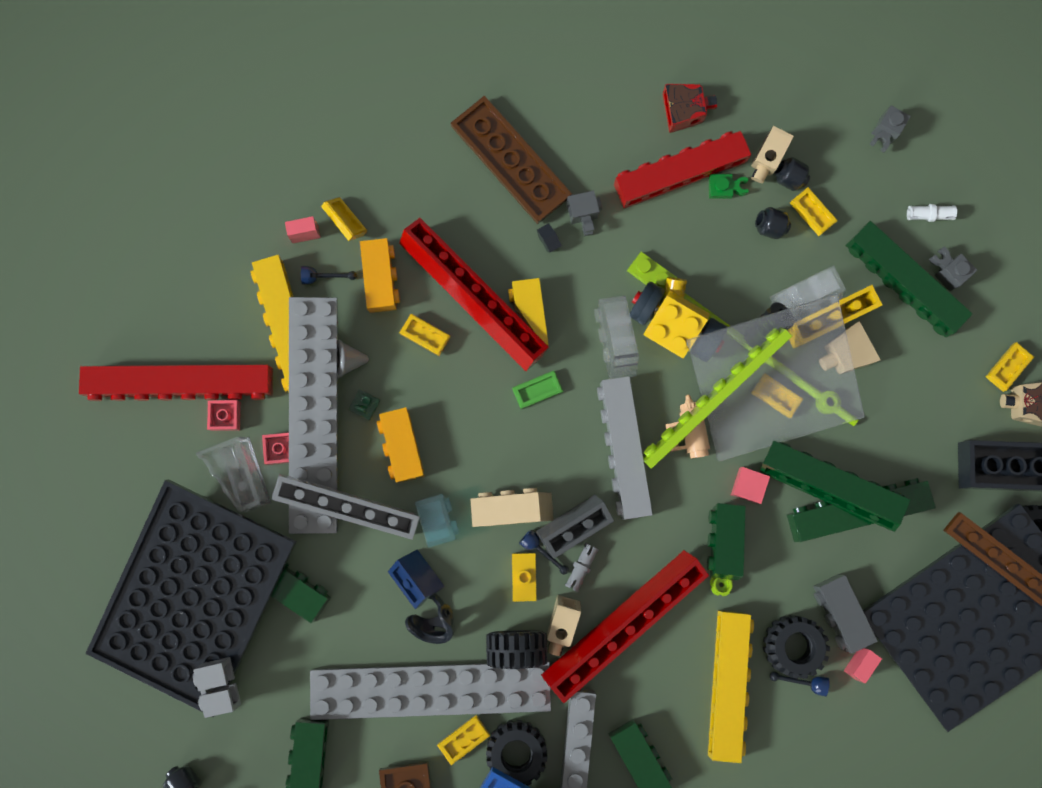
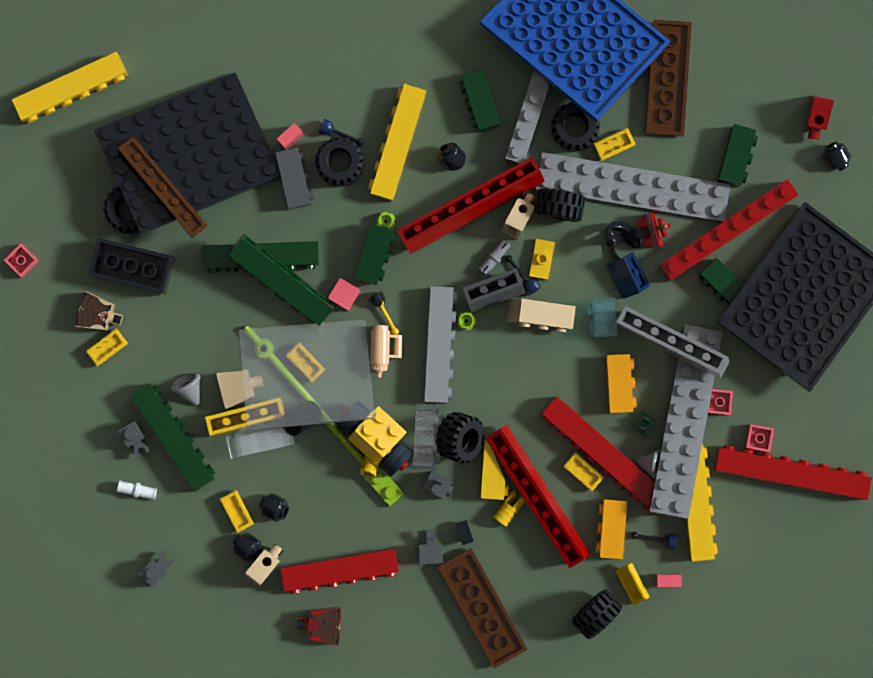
camera: 160 degrees left, 5 degrees up
(218, 699) = (798, 226): light grey piece -> none
(238, 473) = (754, 387): clear wedge -> none
(300, 662) = (728, 230): none -> red brick
(377, 172) = (597, 614): none -> black tyre
(400, 650) = (654, 239): none -> red hips
(410, 361) = (600, 451): none -> red brick
(504, 271) = (507, 512): none -> yellow hinge
(537, 389) = (500, 407): bright green tile -> none
(578, 341) = (460, 437): none -> black tyre
(591, 284) = (438, 485): none -> dark grey brick
(592, 484) = (471, 320): none -> lime plate
(661, 681) = (451, 156): none -> black head
(708, 486) = (378, 301): none -> hinge
(722, 186) = (307, 549): green plate -> none
(722, 389) = (355, 372): lime plate -> none
(905, 338) = (188, 387): none -> light grey hat

